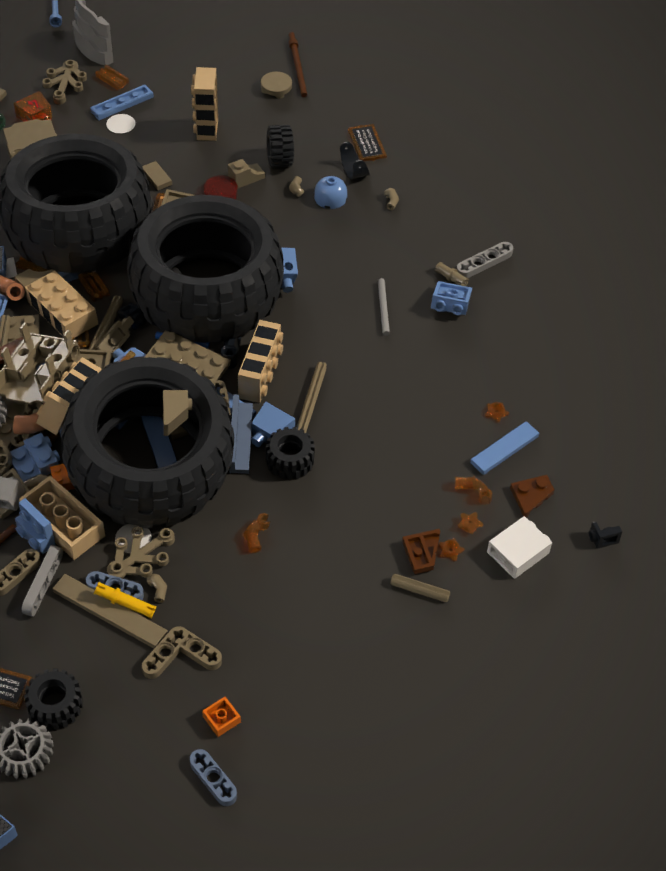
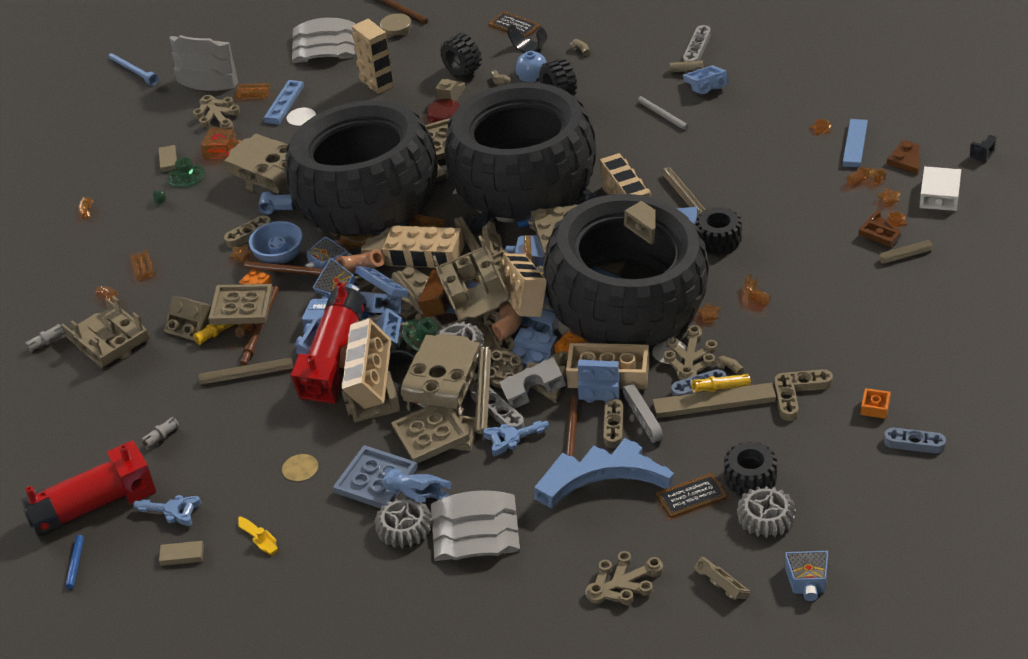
camera: 30 degrees left, 10 degrees down
(199, 530) = (709, 312): none -> clear orange plate
(211, 54) = (323, 39): none -> light grey slope
(324, 220) = (559, 74): none -> black tyre

